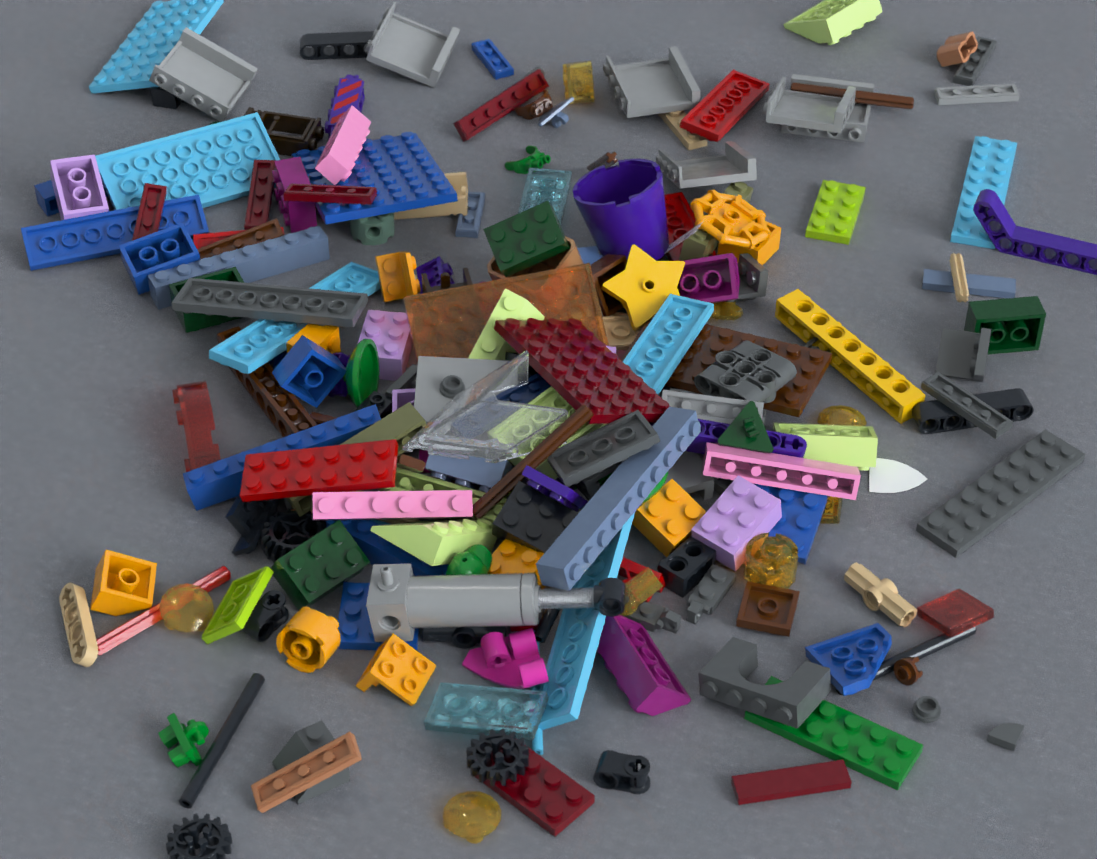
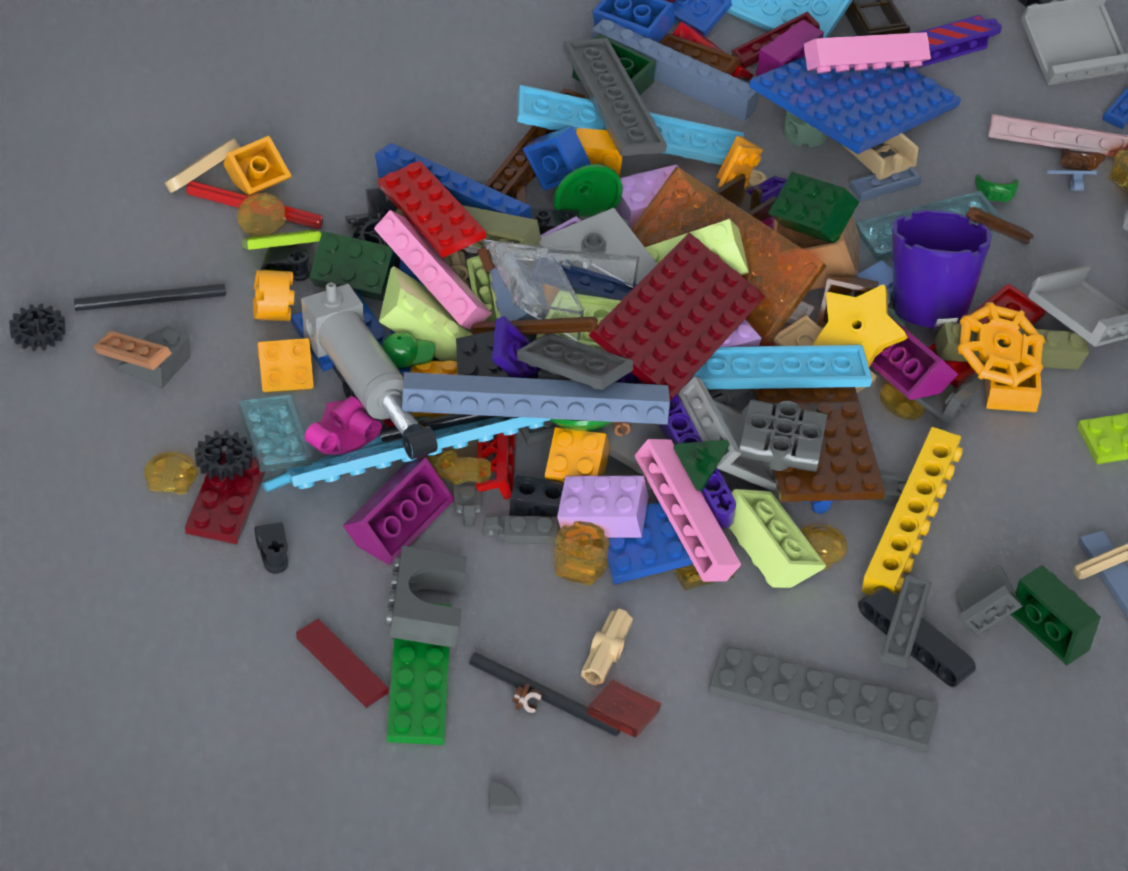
camera: 55 degrees right, 5 degrees up
(187, 737) = (130, 274): green hips -> none
(198, 422) = (458, 122): clear red brick -> none
(330, 194) = (781, 69): dark red tile -> none
(767, 609) = (531, 574): reddish brown plate -> none
(852, 657) = (507, 648): blue plate -> none
(893, 477) = (781, 609): white sticker -> none
(926, 709) = (490, 728): dark grey plate -> none

